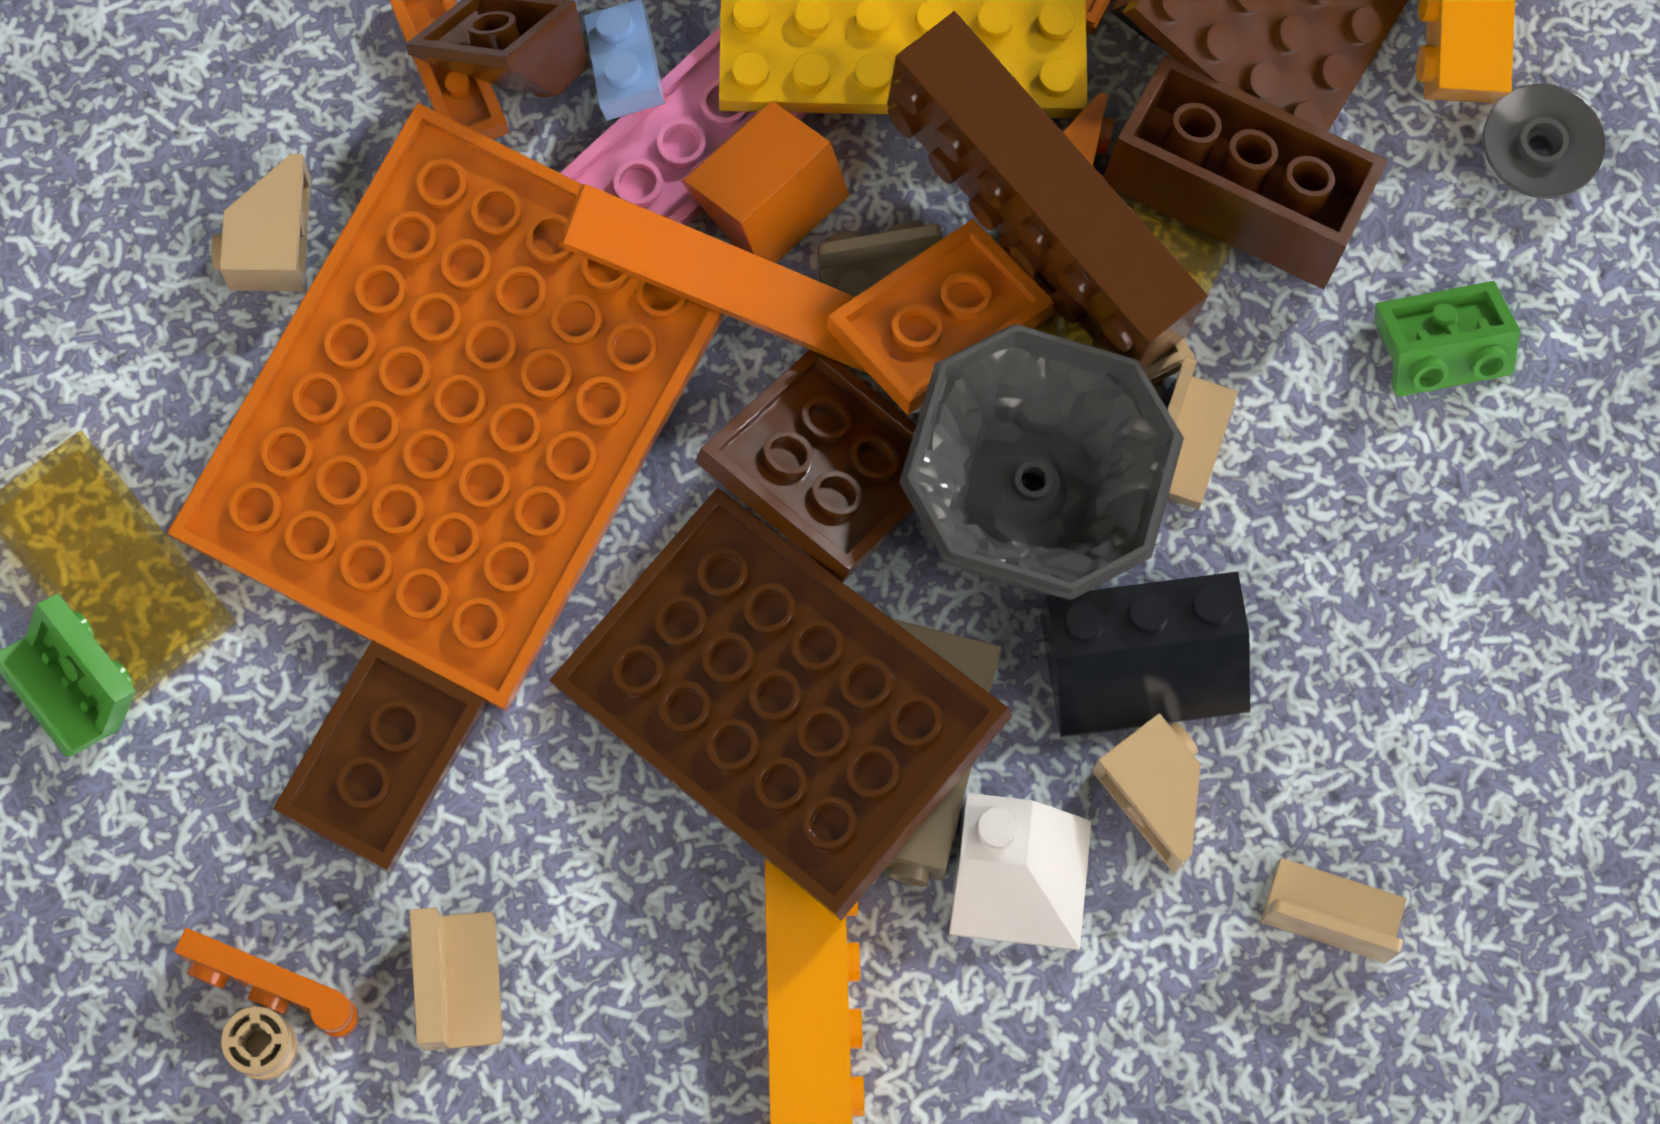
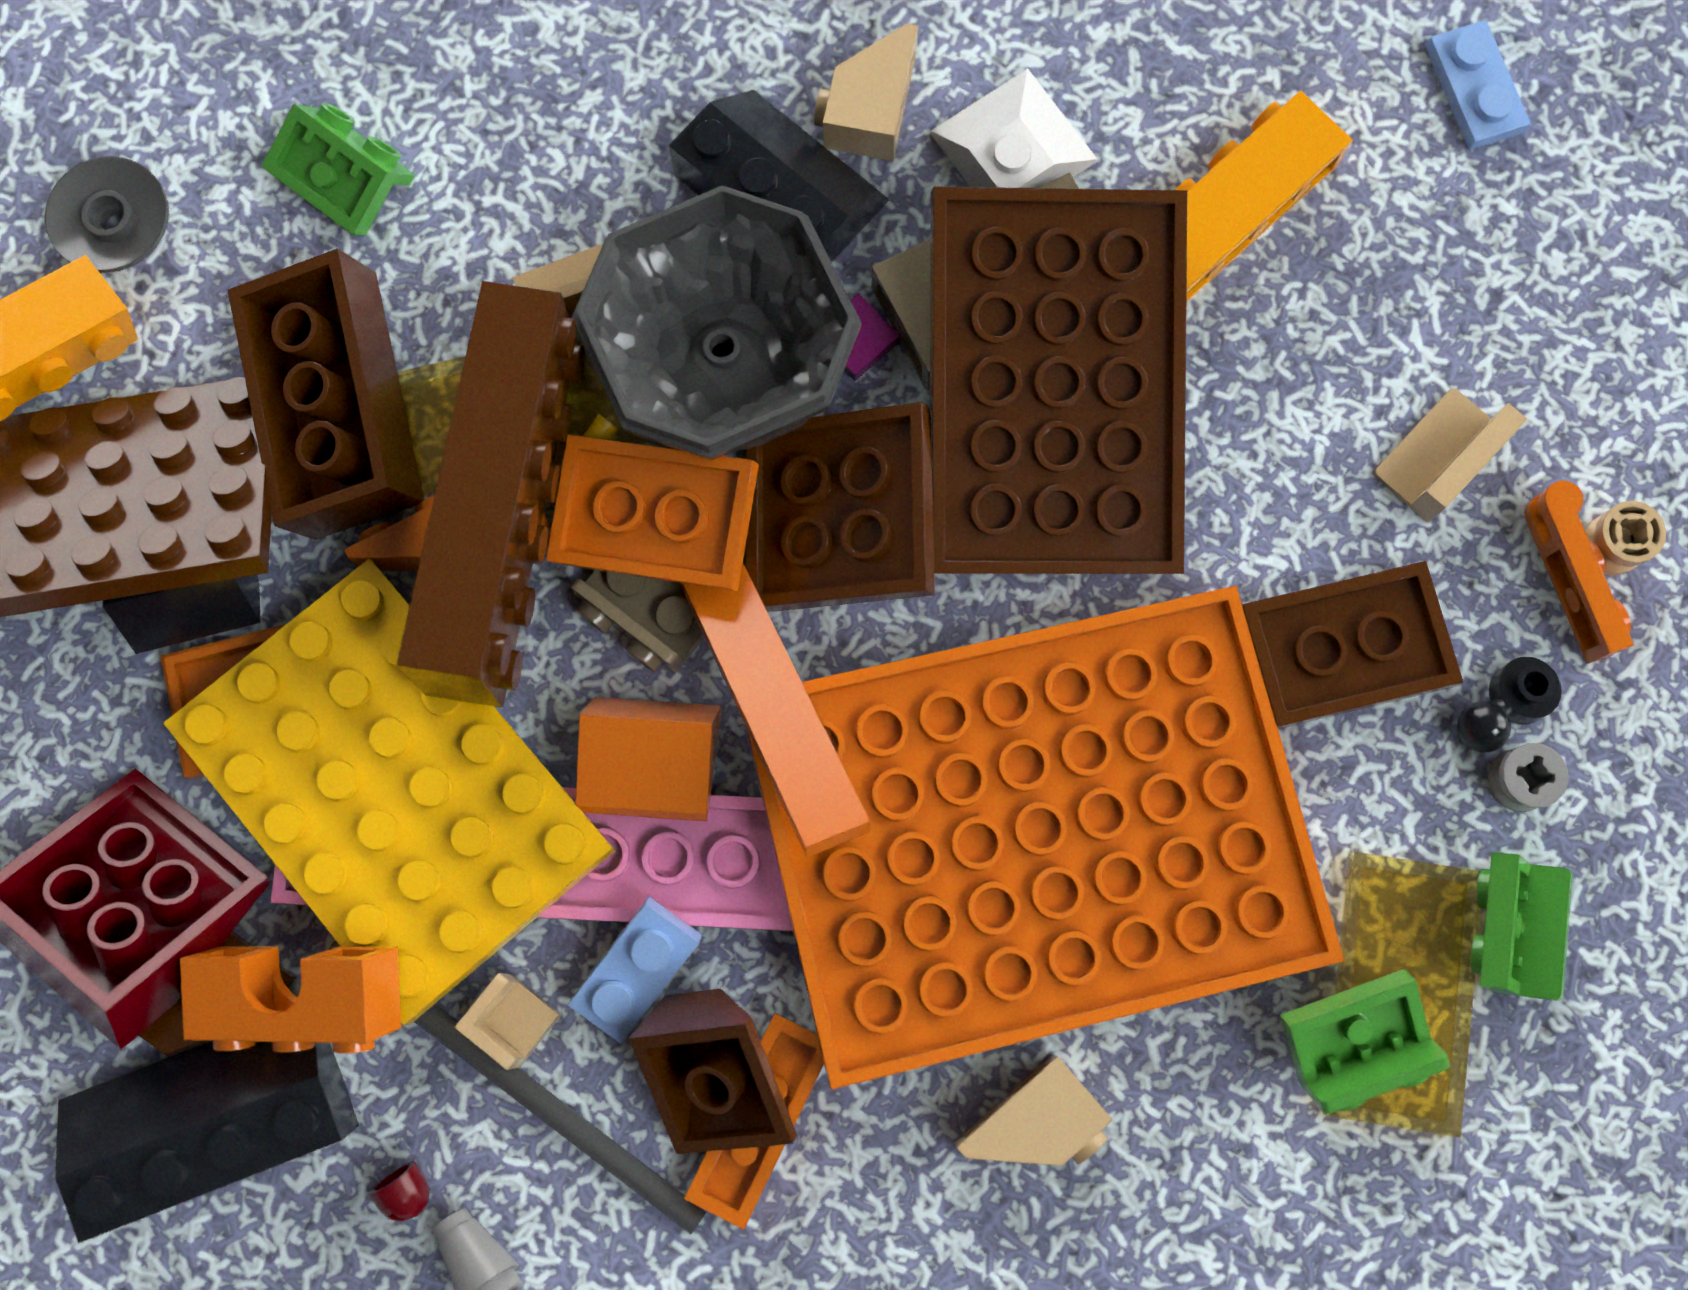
camera: 125 degrees left, 5 degrees up
(100, 482) = (1362, 1043): none -> bright green bracket
(171, 804) = (1511, 780): none -> light grey wheel
(226, 802) = (1488, 724): none -> black plate
(964, 607) = (873, 340): none -> magenta tile

